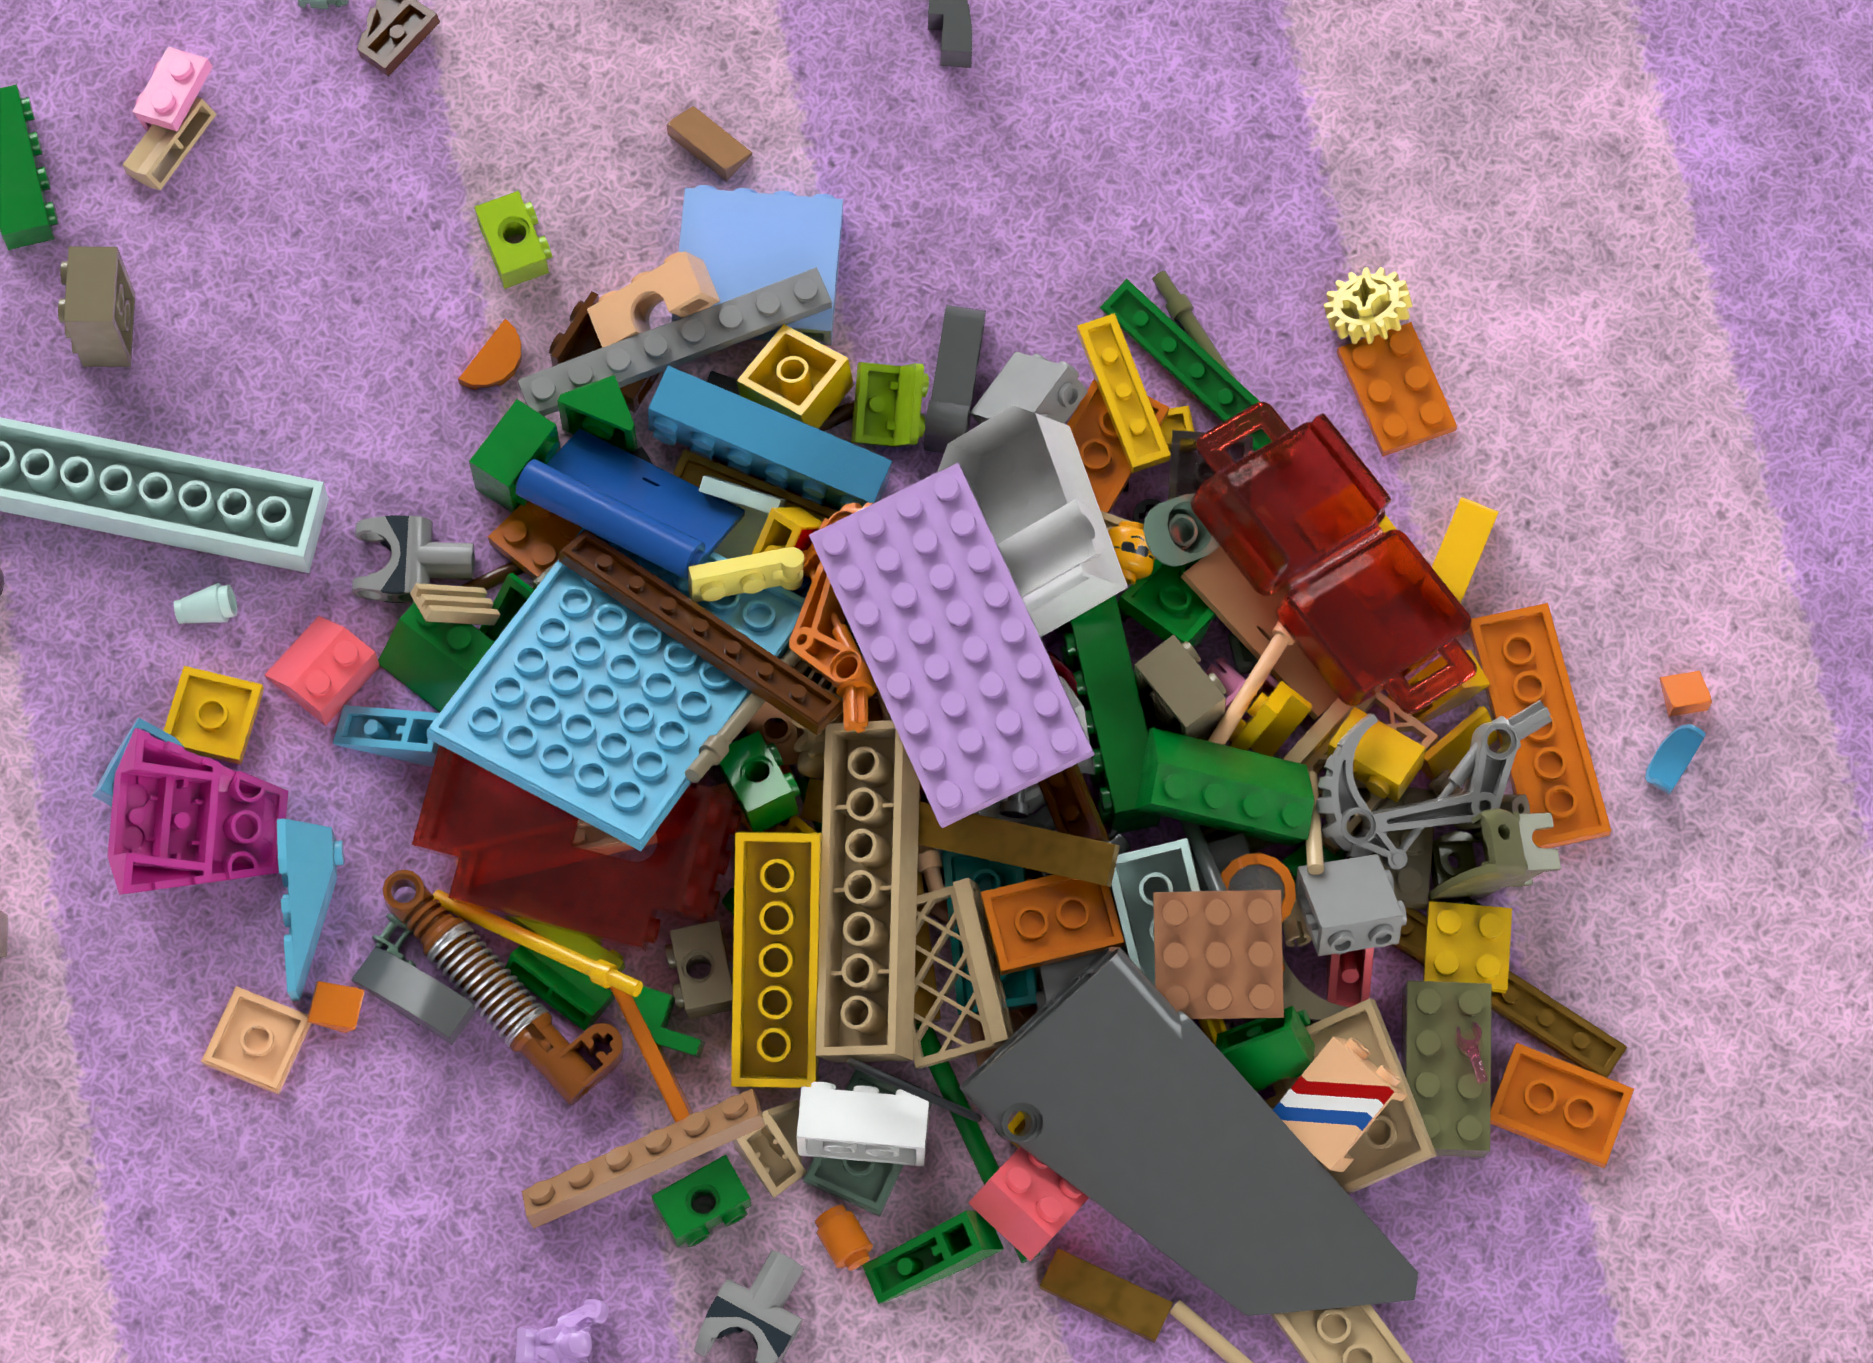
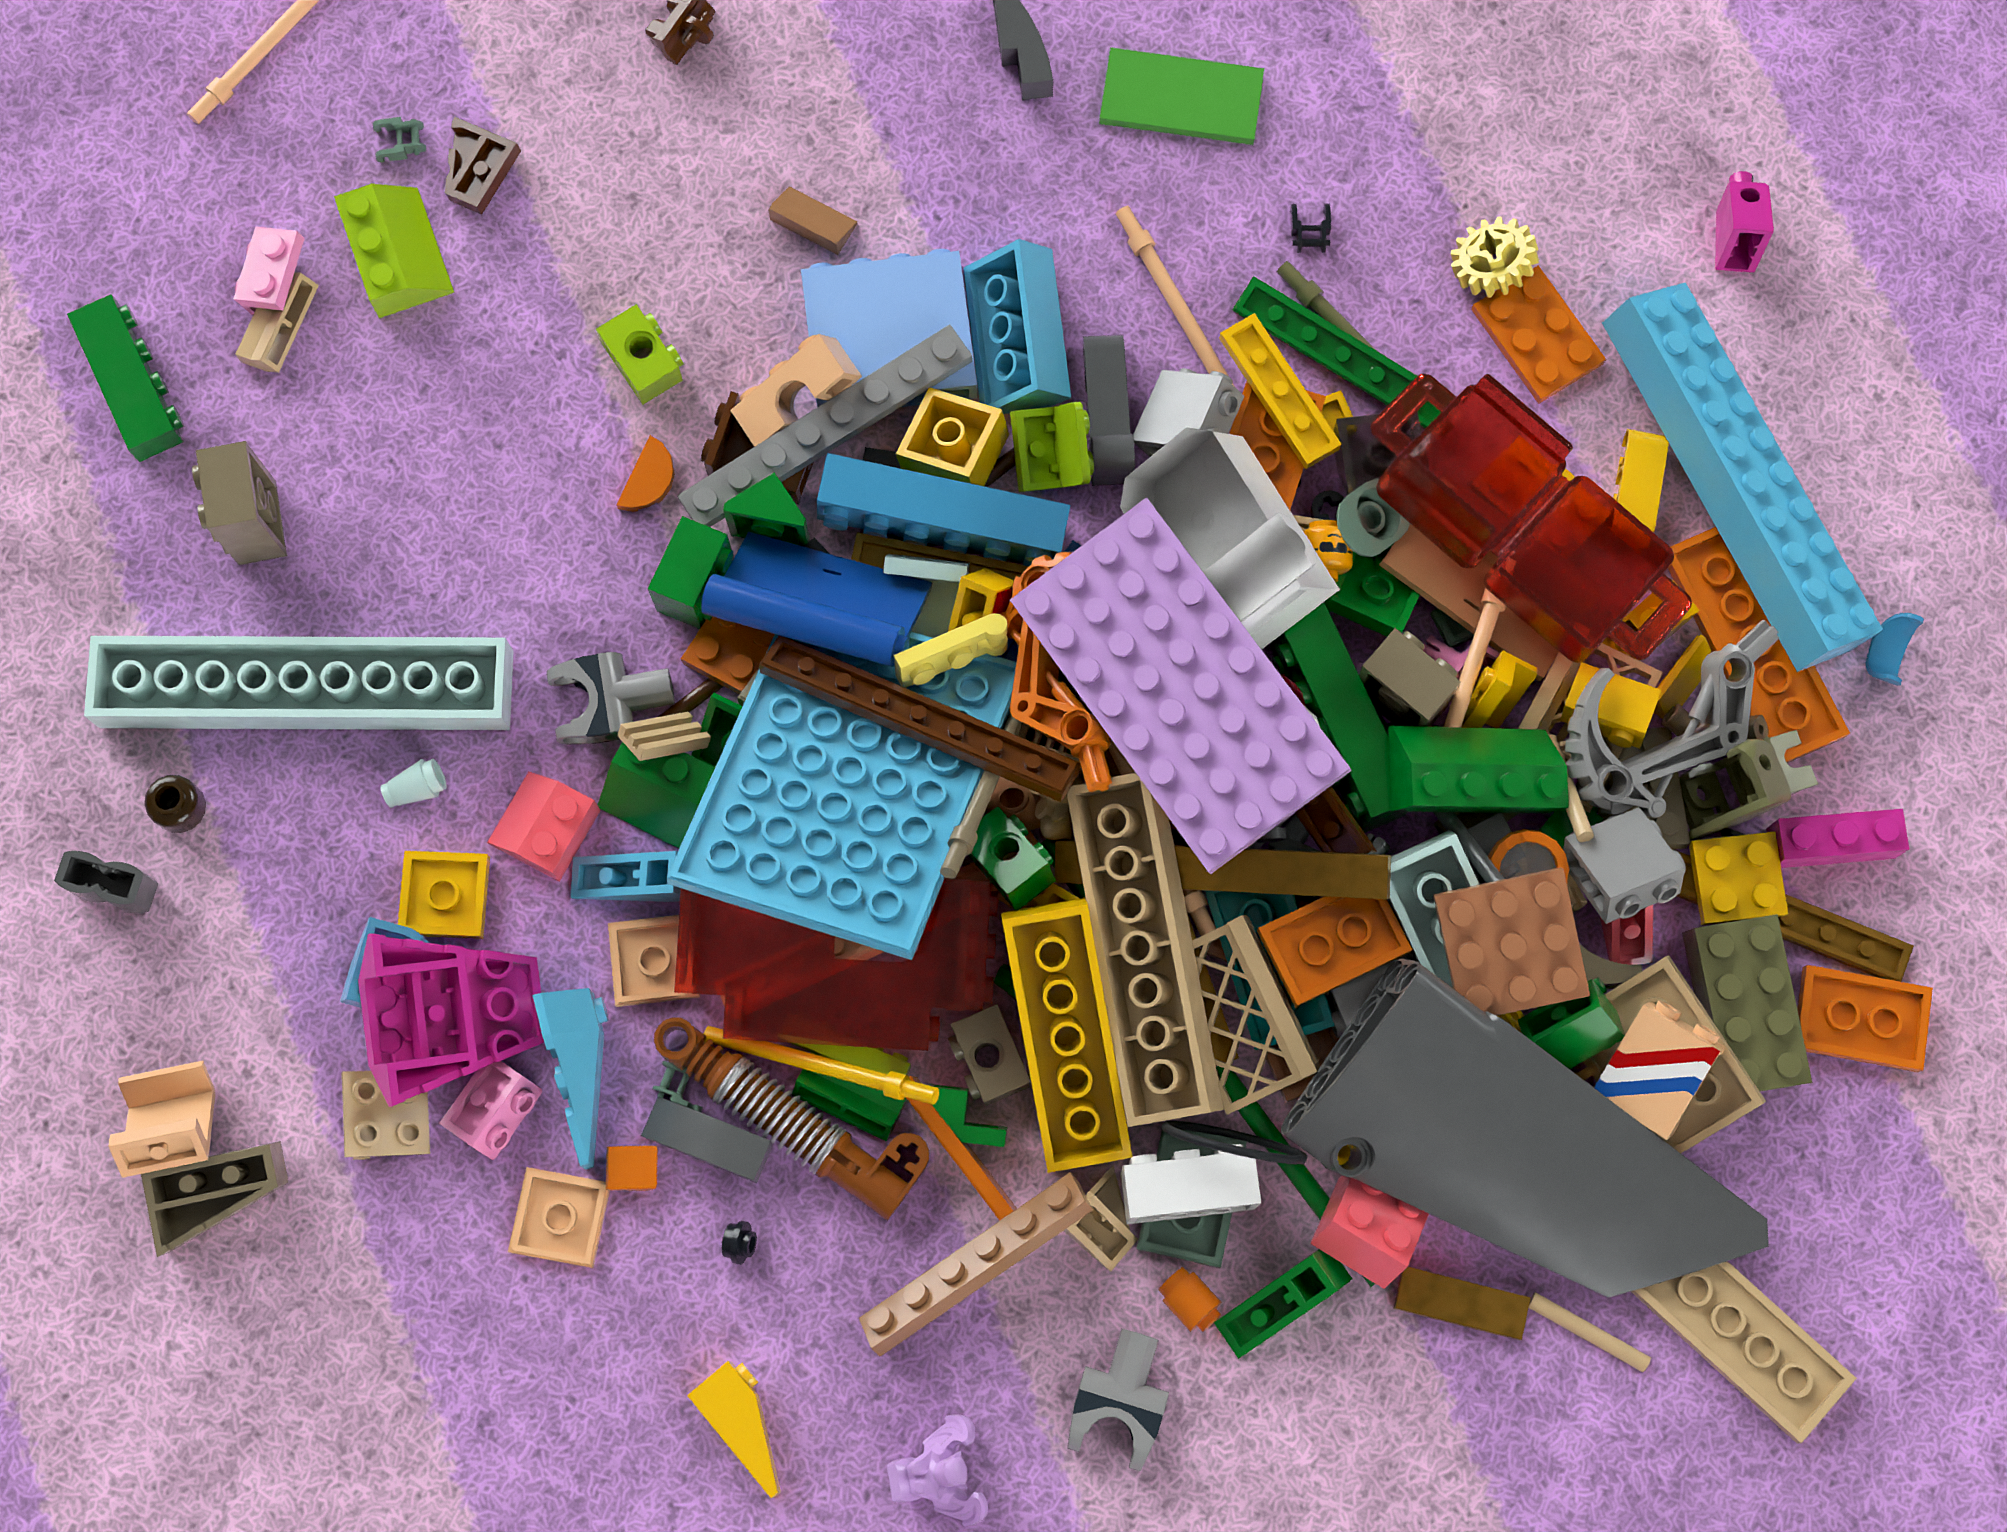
camera: 10 degrees left, 5 degrees up
(106, 918) = (377, 1129): none -> tan hinge
(215, 923) = (491, 1108): none -> bright pink bracket
(296, 91) = (393, 246): none -> lime slope
(386, 1255) = (737, 1416): none -> yellow slope
(390, 816) = (644, 960): none -> light nougat tile
(422, 1096) = (739, 1242): none -> black plate
(713, 1180) = (1053, 1269): green brick -> none
(884, 284) = (1017, 328): none -> medium azure slope
(1027, 229) = (1143, 245): none -> light nougat bar
(1097, 91) = (1181, 96): none -> bright green tile
(1182, 240) = (1324, 228): none -> black piece
(1473, 1052) = (1777, 987): clear pink hand -> none
(1560, 563) = (1741, 476): none -> medium azure brick
(1575, 928) = (1840, 838): none -> dark pink brick
(1623, 310) = (1744, 210): none -> dark pink torso
(1685, 693) = (1887, 580): orange slope -> none

